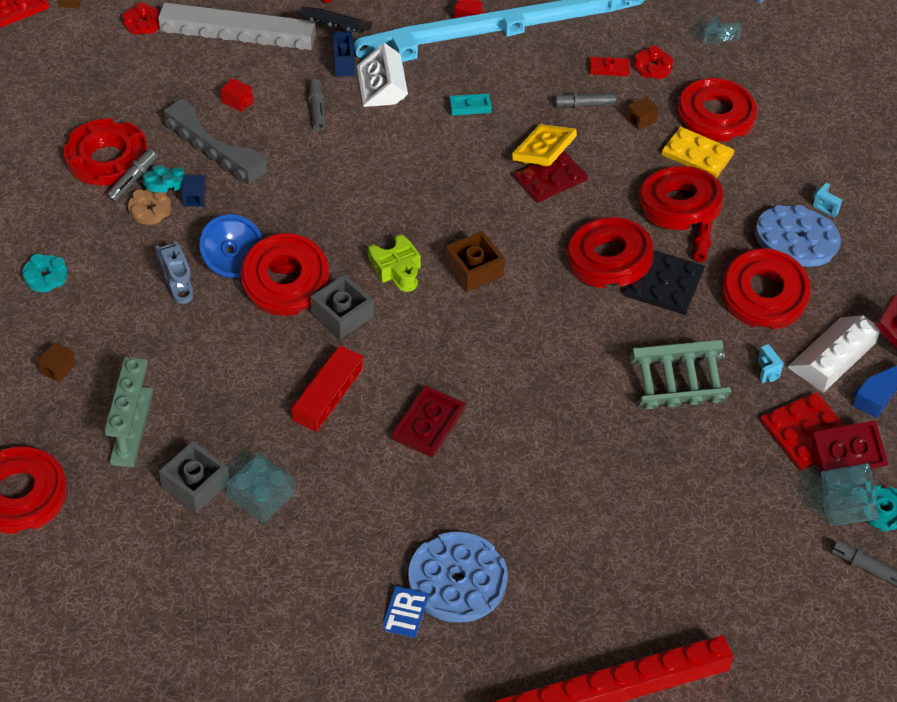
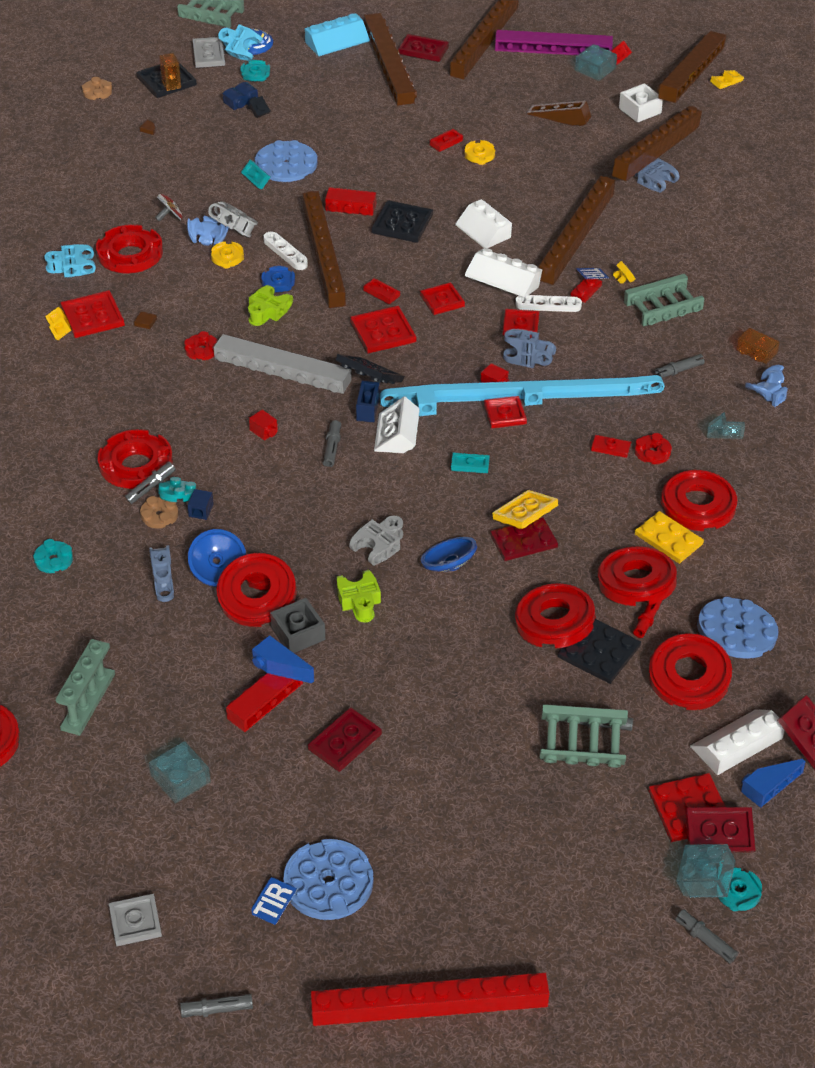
camera: 15 degrees right, 5 degrees down
(56, 362) = (39, 634): reddish brown brick -> none
(194, 476) = (125, 752): dark grey brick -> none
(243, 162) = (250, 485): dark grey arch -> none
(259, 662) = (135, 920): none -> light grey plate
(340, 348) = (280, 661): none -> blue slope
(403, 197) = (381, 537): none -> light grey piece
(474, 261) = (428, 604): reddish brown brick -> none
(480, 204) = (449, 554): none -> blue dish
(490, 45) = (505, 412): none -> red plate
(584, 100) = (576, 473): dark grey pin -> none
(642, 113) = (626, 493): reddish brown brick -> none
(770, 364) = (672, 741): medium azure bracket -> none
(825, 201) = (775, 600): medium azure bracket -> none

